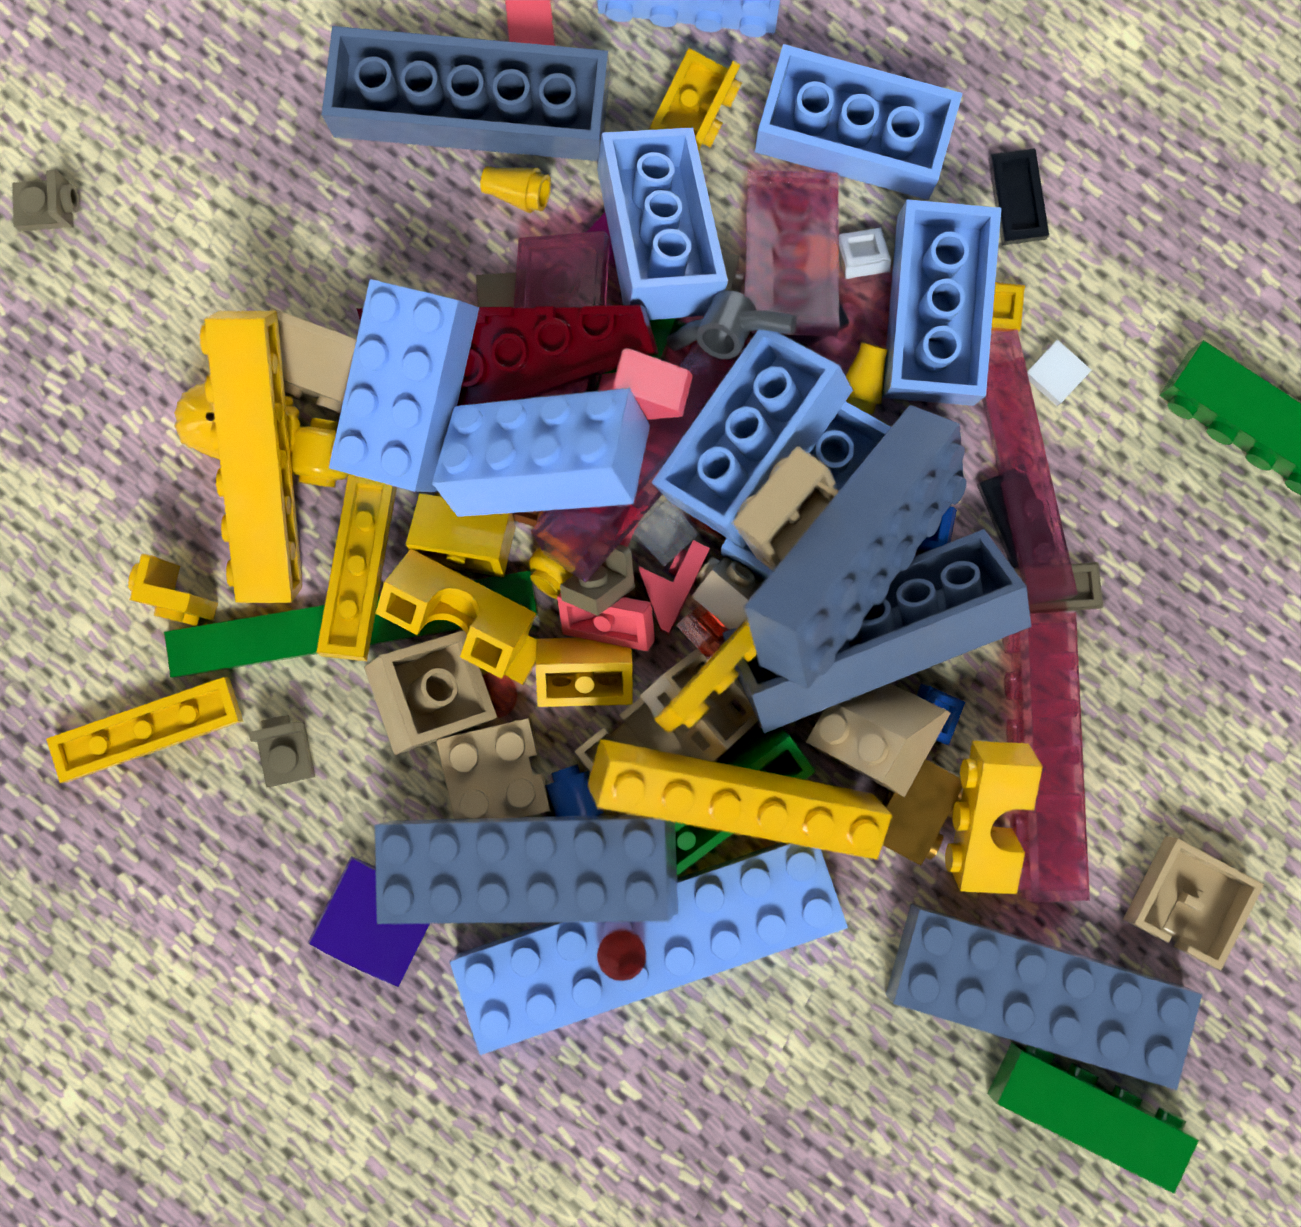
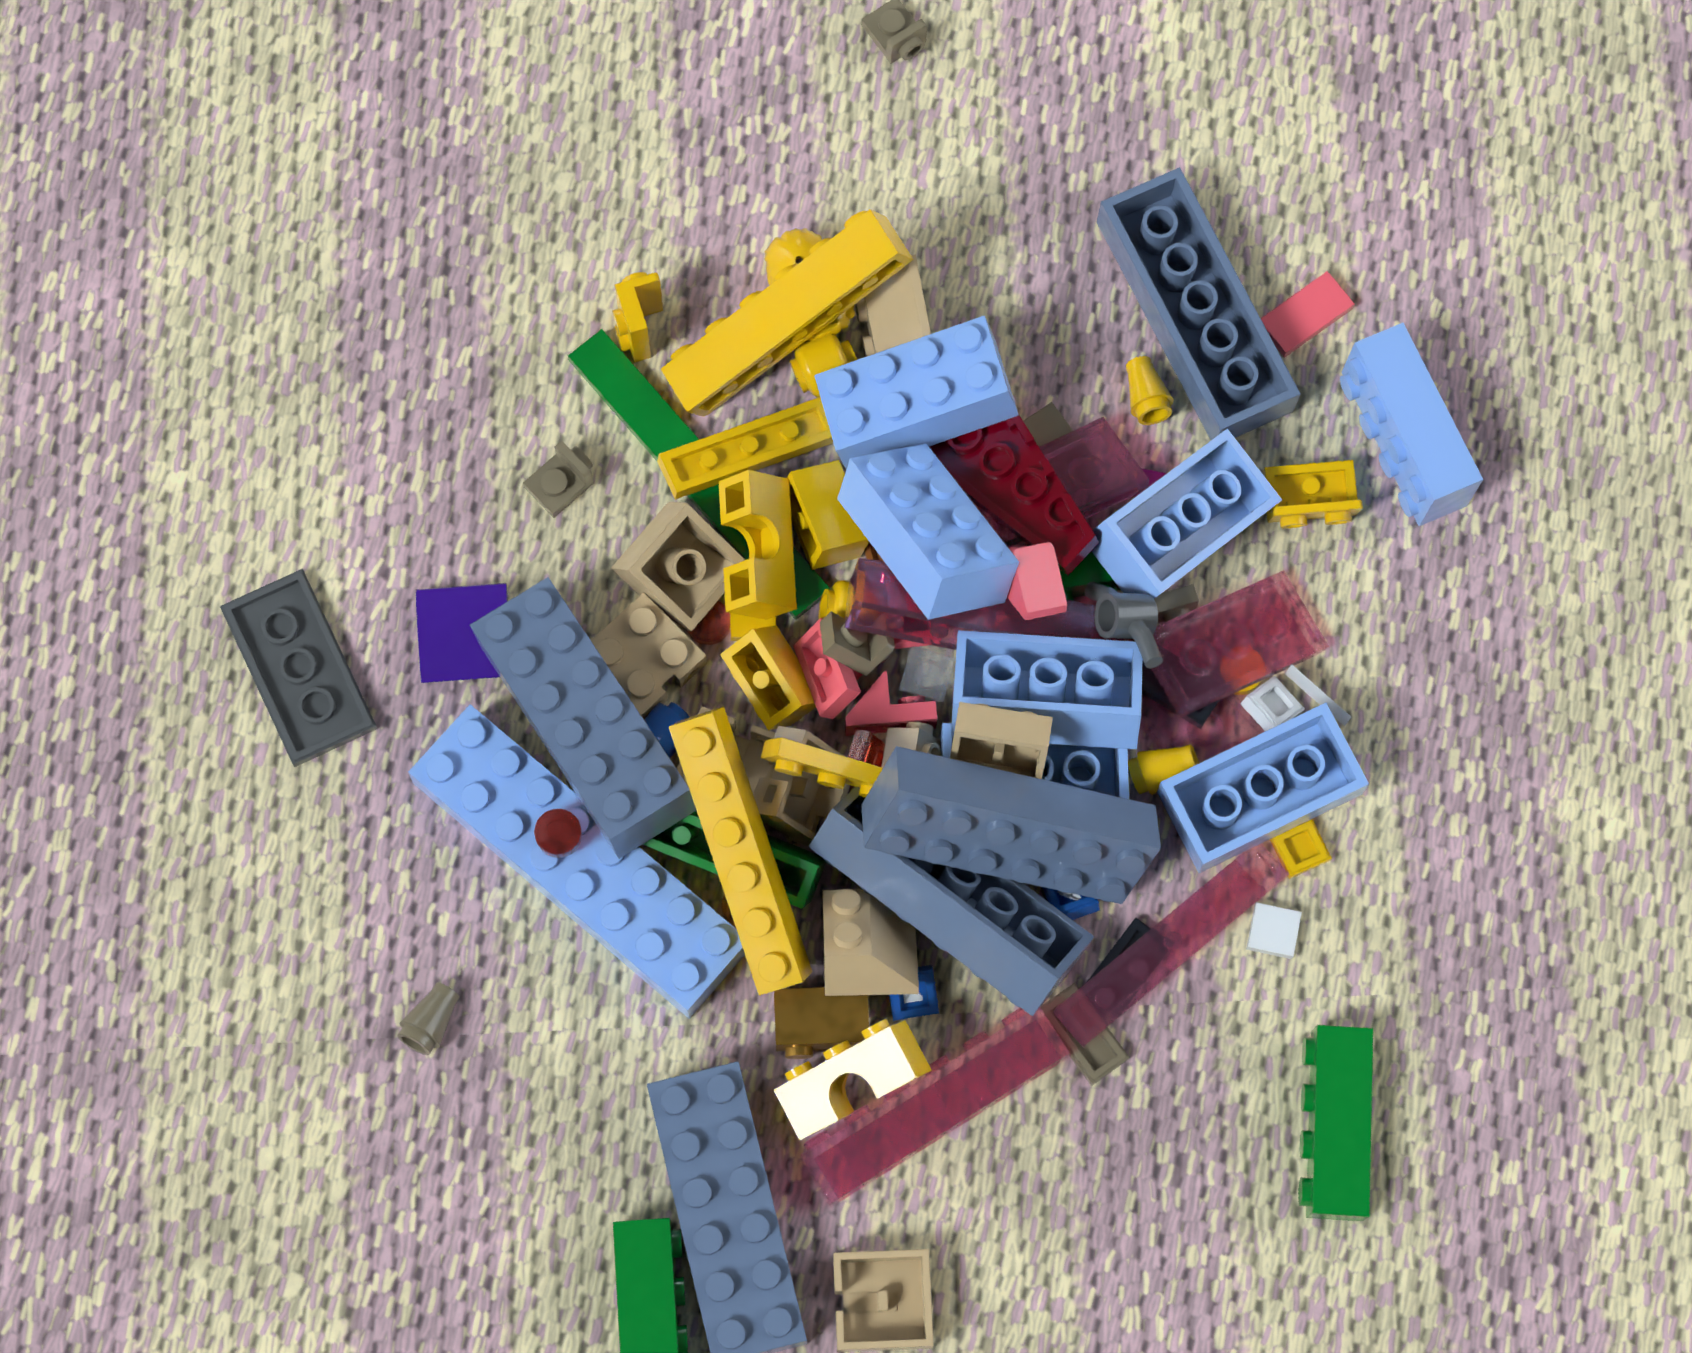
camera: 50 degrees right, 10 degrees down
(144, 730) = (513, 361): yellow plate -> none
(316, 1089) = (298, 667): none -> dark grey tile
(713, 1158) = (428, 1020): none -> dark tan cone
(857, 122) = (1377, 633): light blue brick -> none
(875, 208) = (1317, 694): none -> white sticker
(1019, 196) = (1407, 810): black tile -> none

